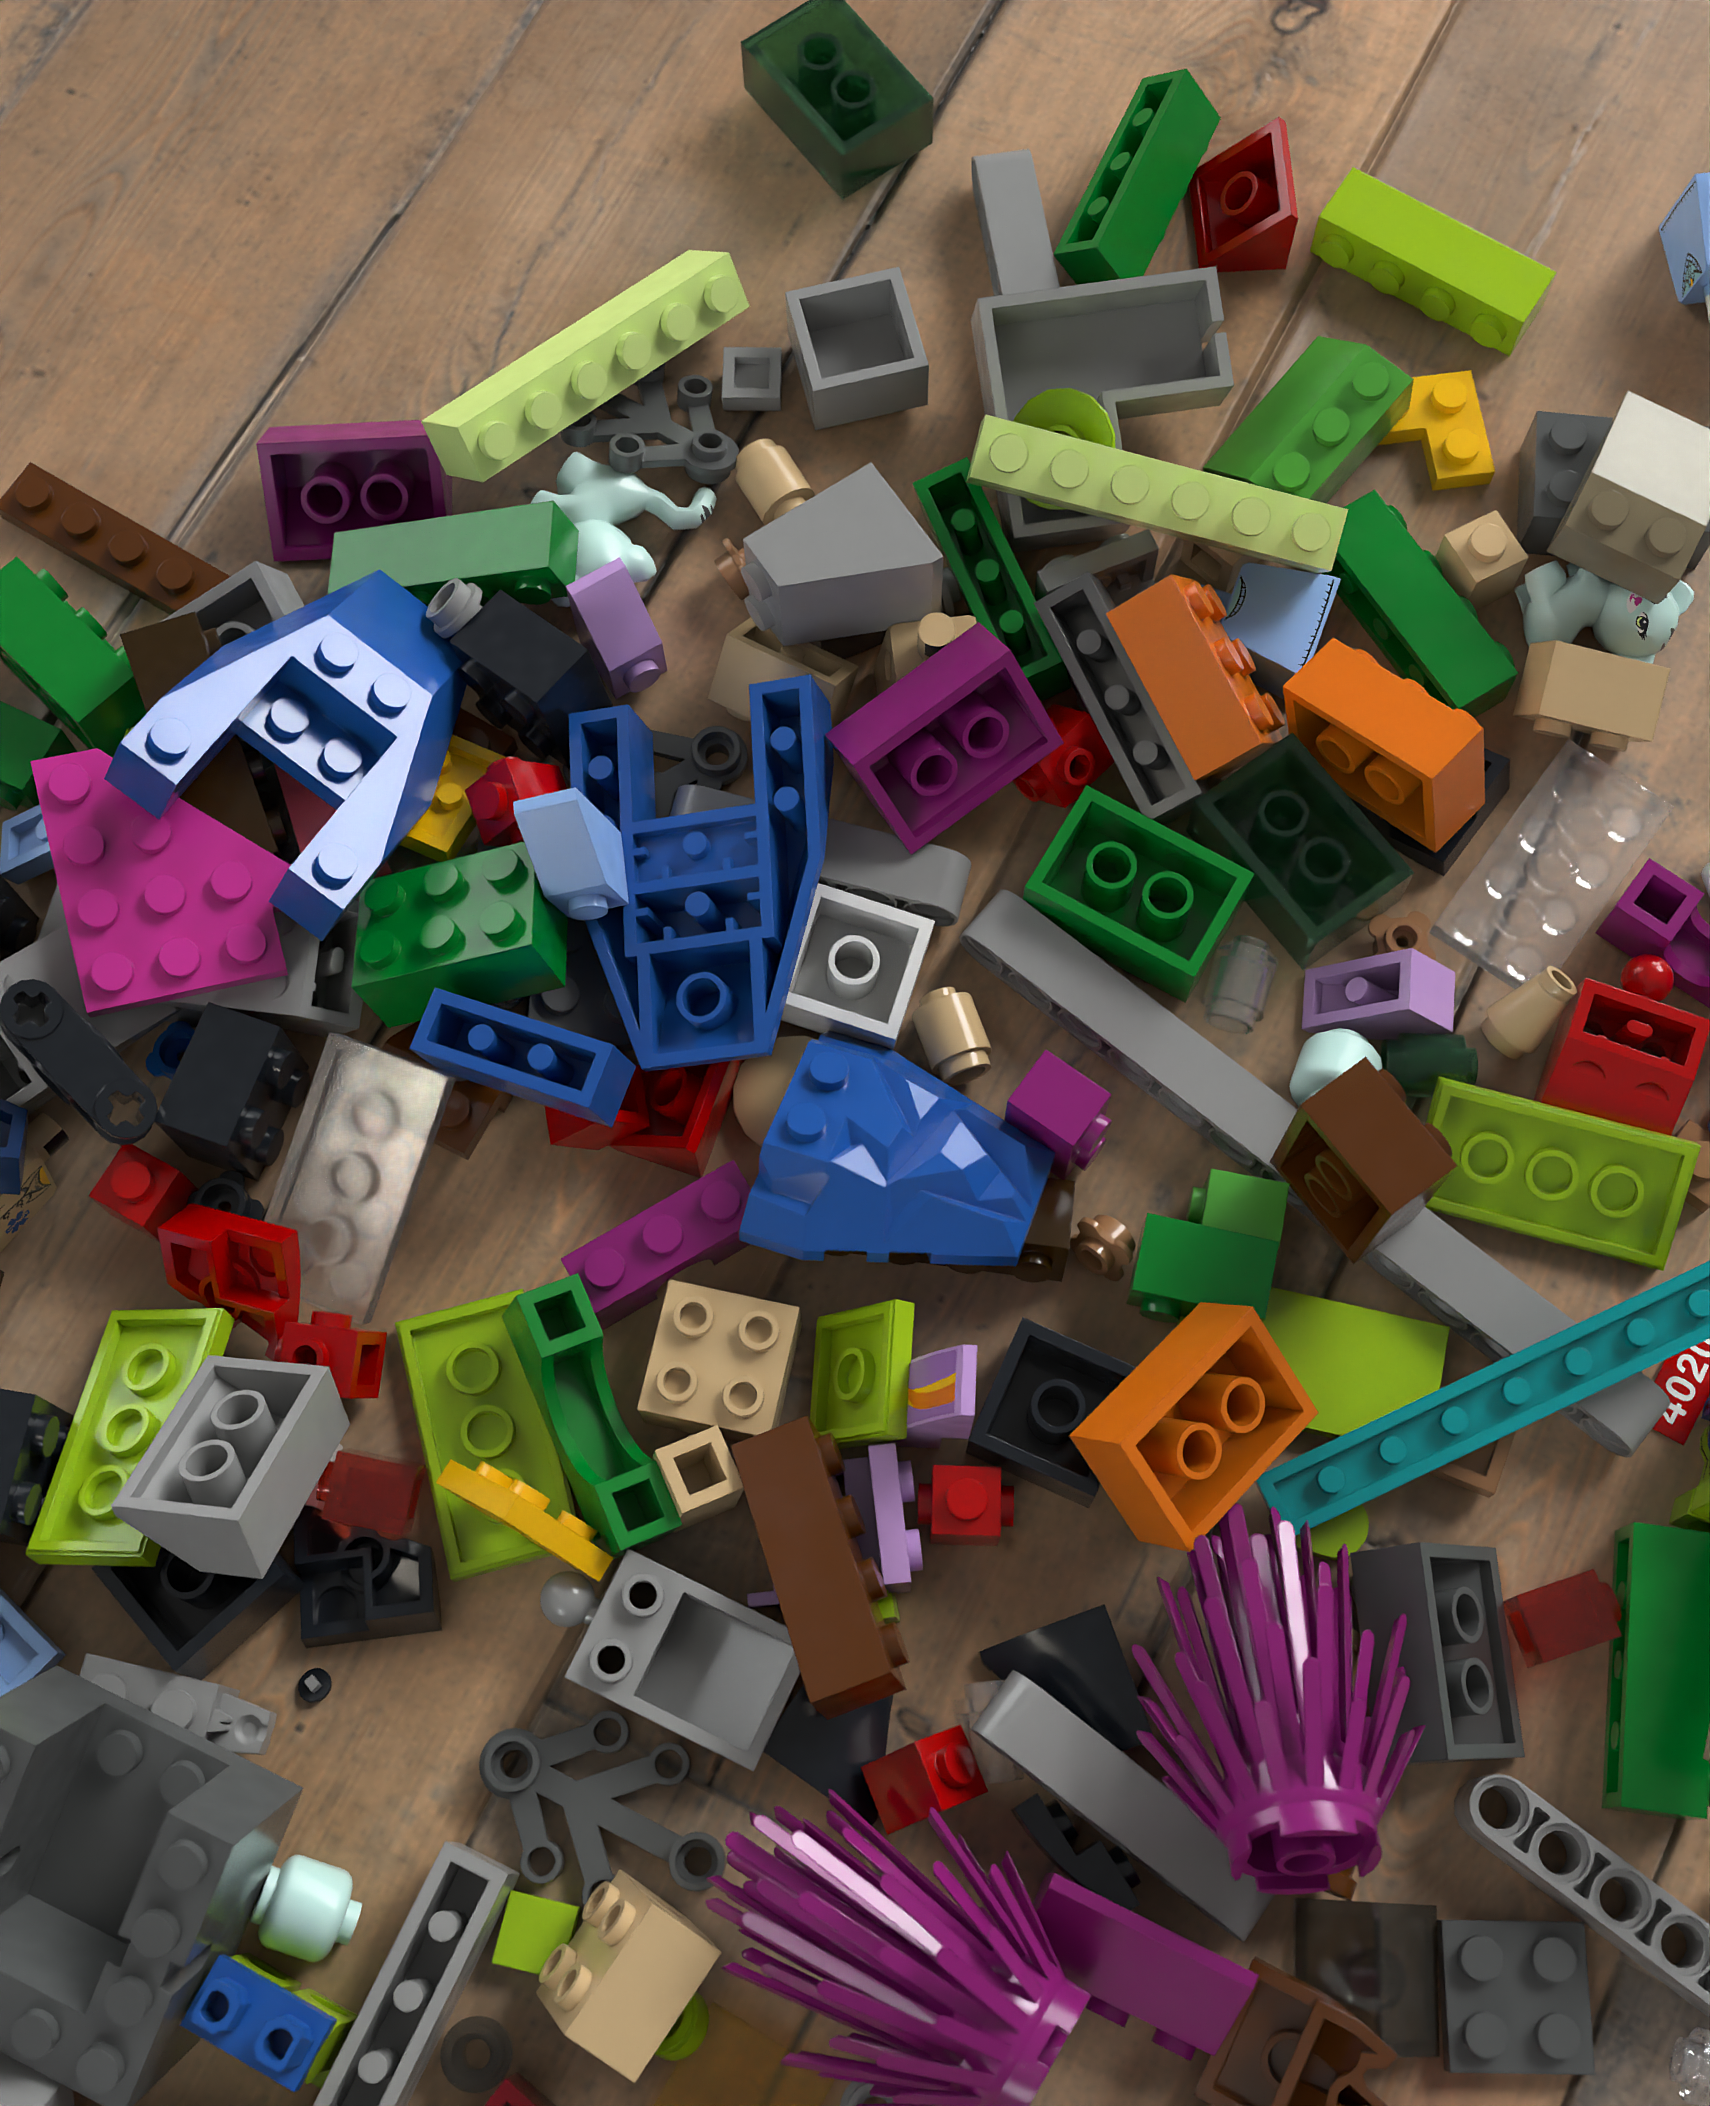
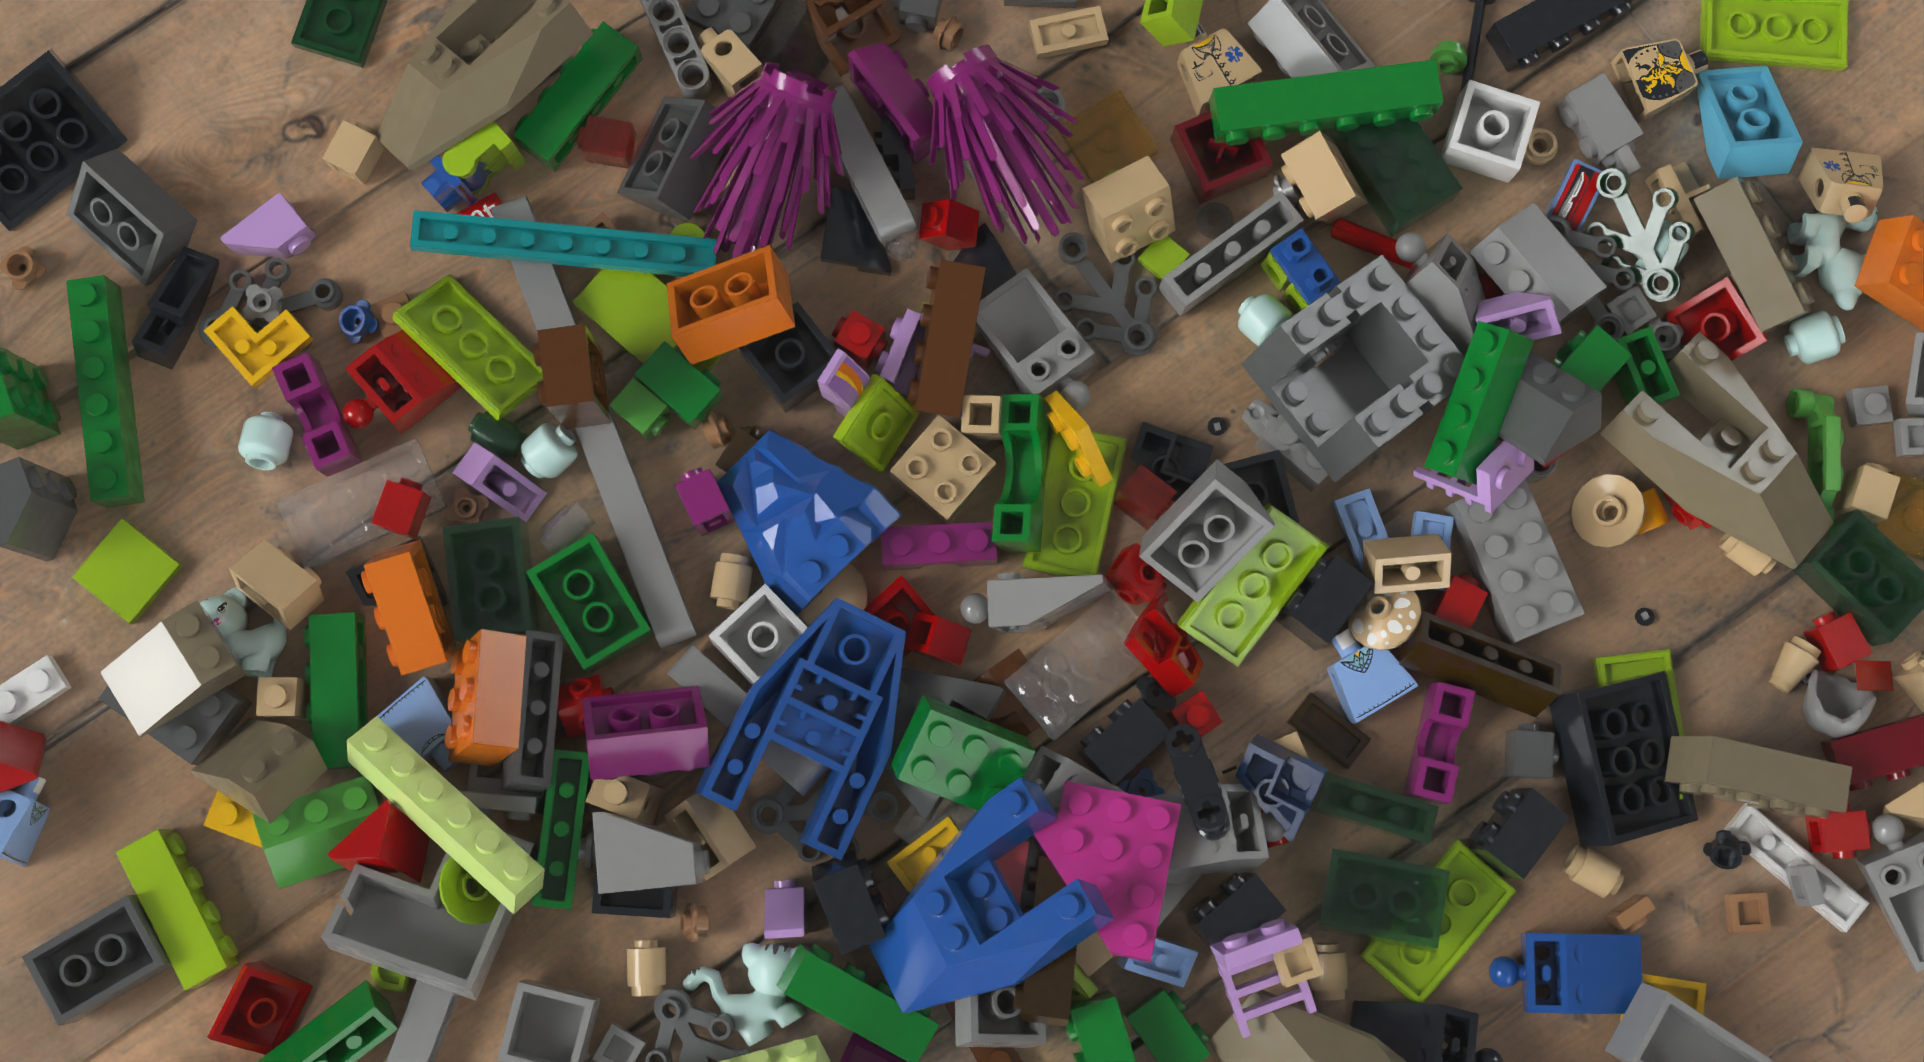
camera: 160 degrees left, 10 degrees up
(454, 607) = (872, 960): light grey plate -> none
(474, 1219) = (1031, 603): none -> light grey slope
(501, 785) = (894, 823): red brick -> none
(523, 1057) = (964, 662): blue brick -> none
(573, 853) = (882, 755): light blue slope -> none
(1217, 430) = (385, 843): none -> red slope
(1442, 443) = (262, 767): none -> dark tan slope
(1449, 1864) = (729, 60): none -> tan torso
(1488, 144) = (97, 960): none -> dark grey brick
(1490, 874) = (402, 508): none -> red brick
(1528, 1013) = (430, 431): tan cone -> none

